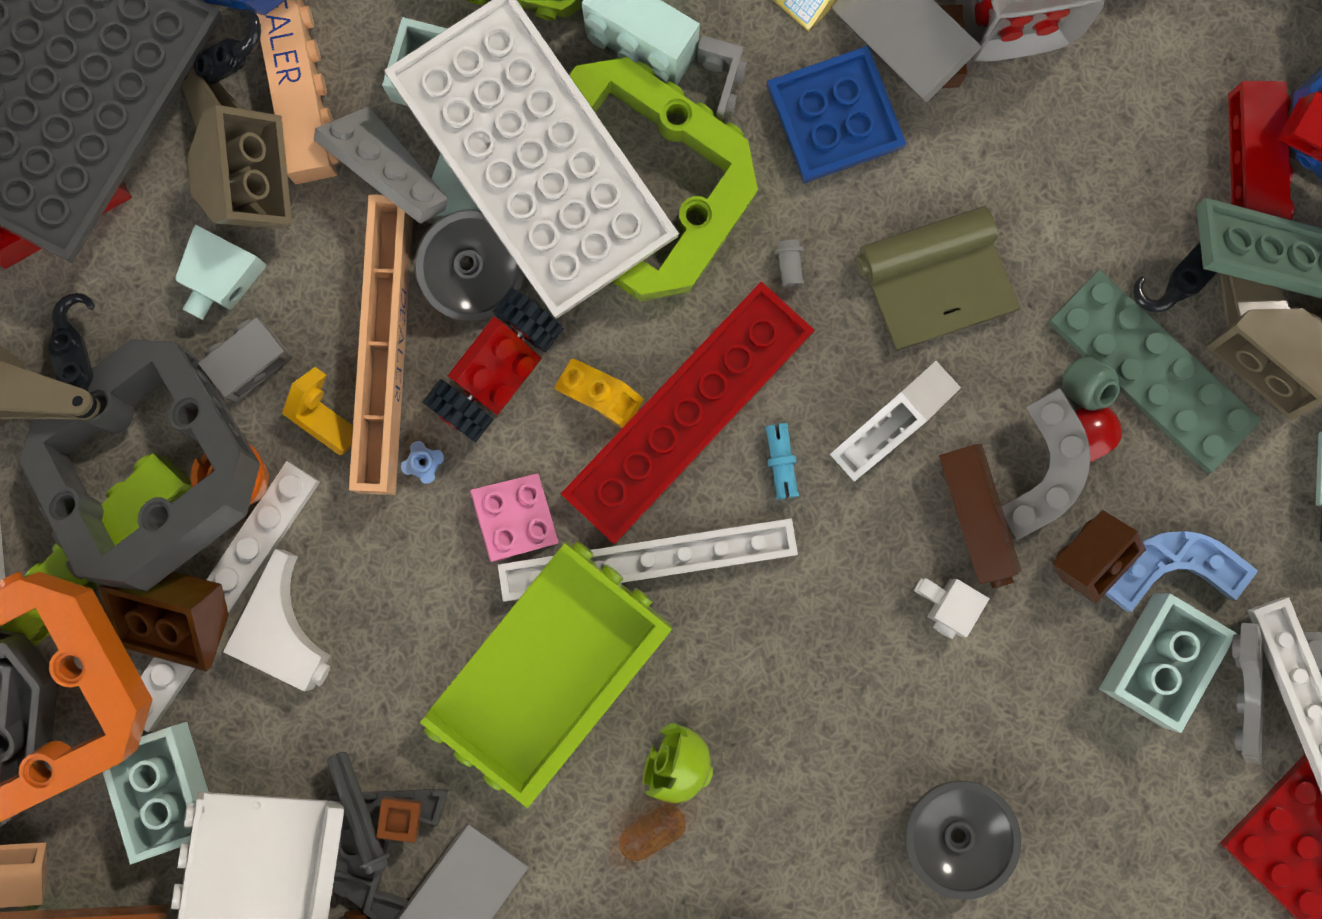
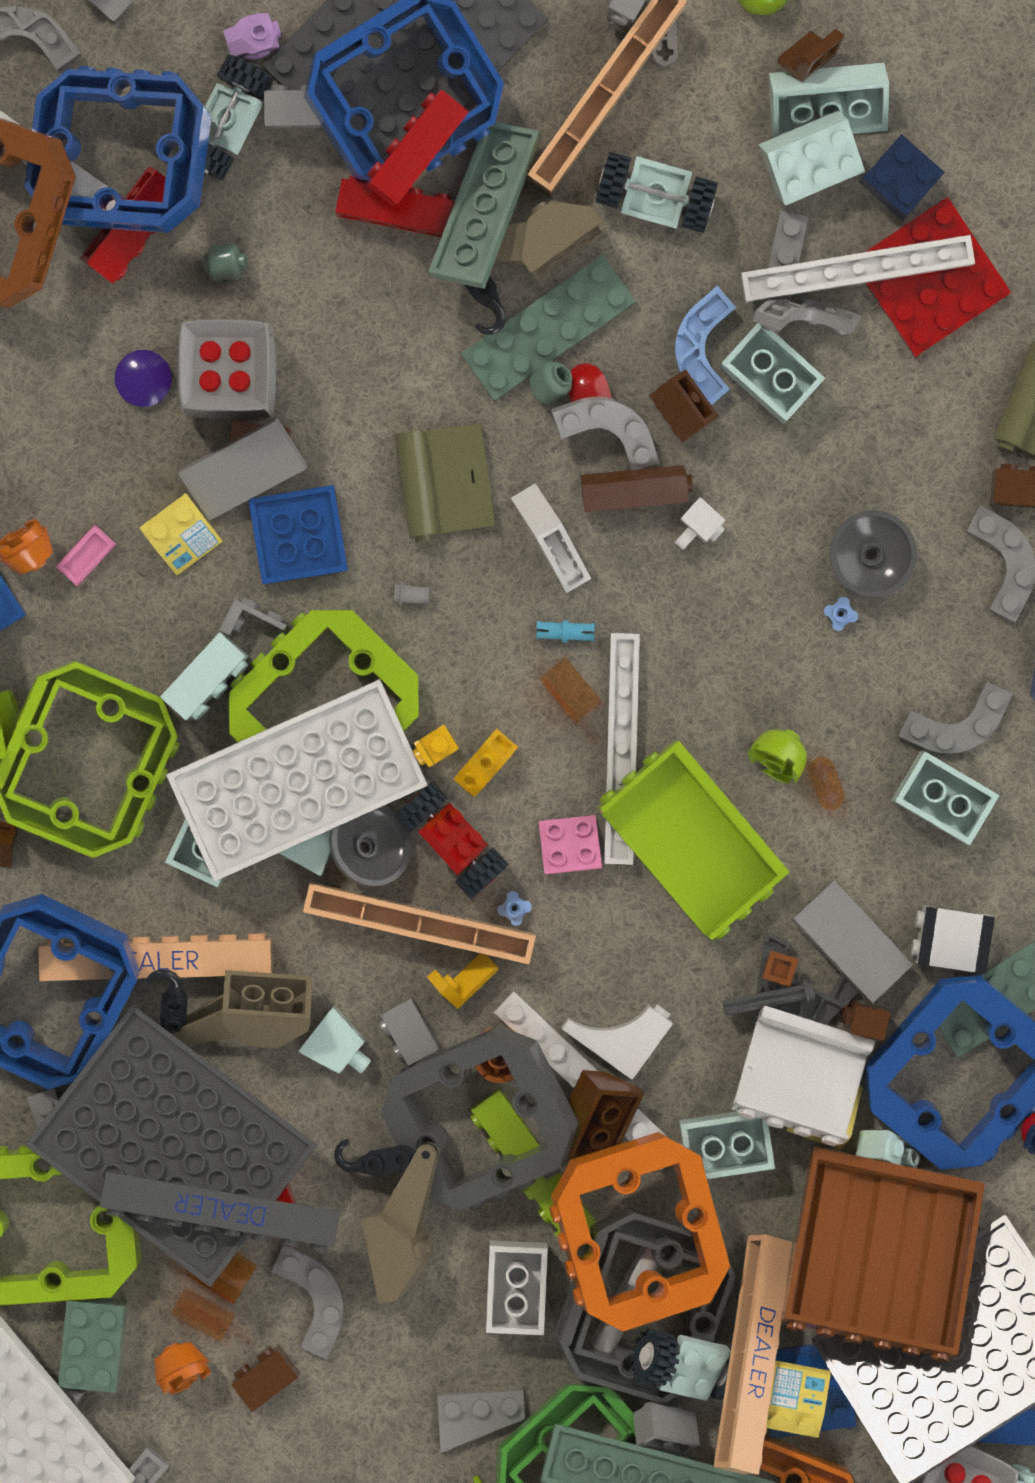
camera: 80 degrees left, 5 degrees up
(382, 161) = (274, 899): light grey wing -> none
(605, 323) = (434, 747): none -> yellow bracket
(687, 412) = (514, 696): red plate -> none
(709, 481) = (570, 690): none -> clear orange panel
(885, 811) = (832, 613): none -> light blue plate

